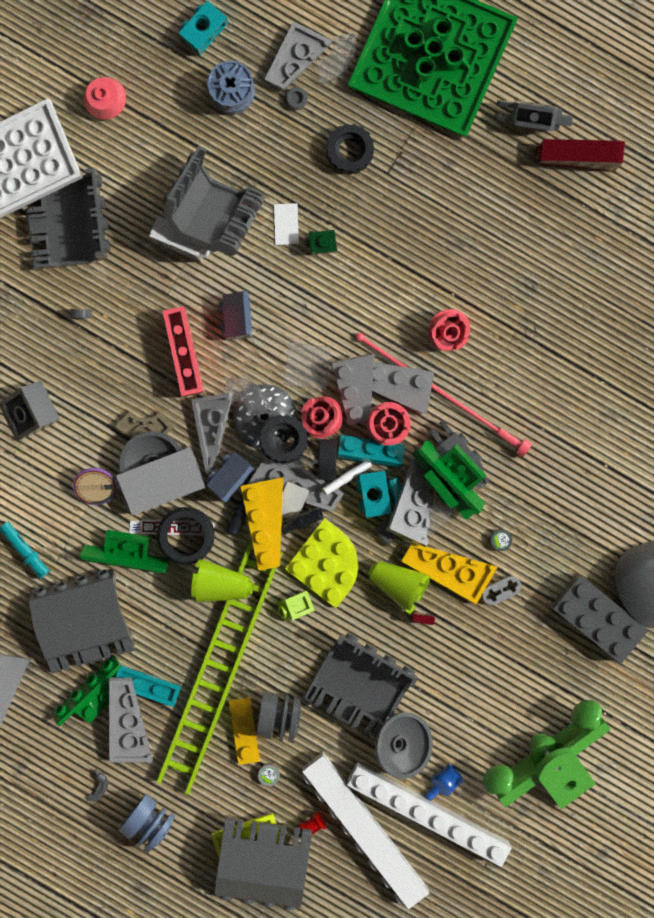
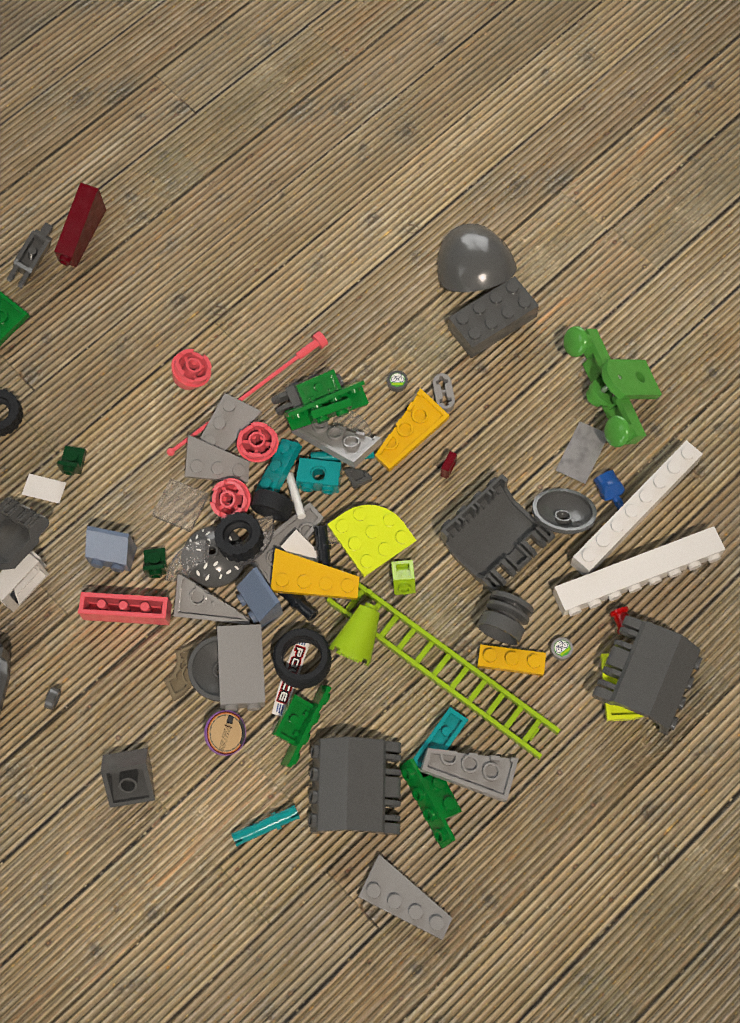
camera: 70 degrees left, 20 degrees down
(102, 787) = (532, 819): dark grey piece -> none
(147, 823) = (575, 779): sand blue wheel -> none
(240, 362) = (155, 563): none -> dark green bracket
(399, 584) = (409, 474): lime cone -> none
(477, 744) = (582, 452): none -> flat silver sticker

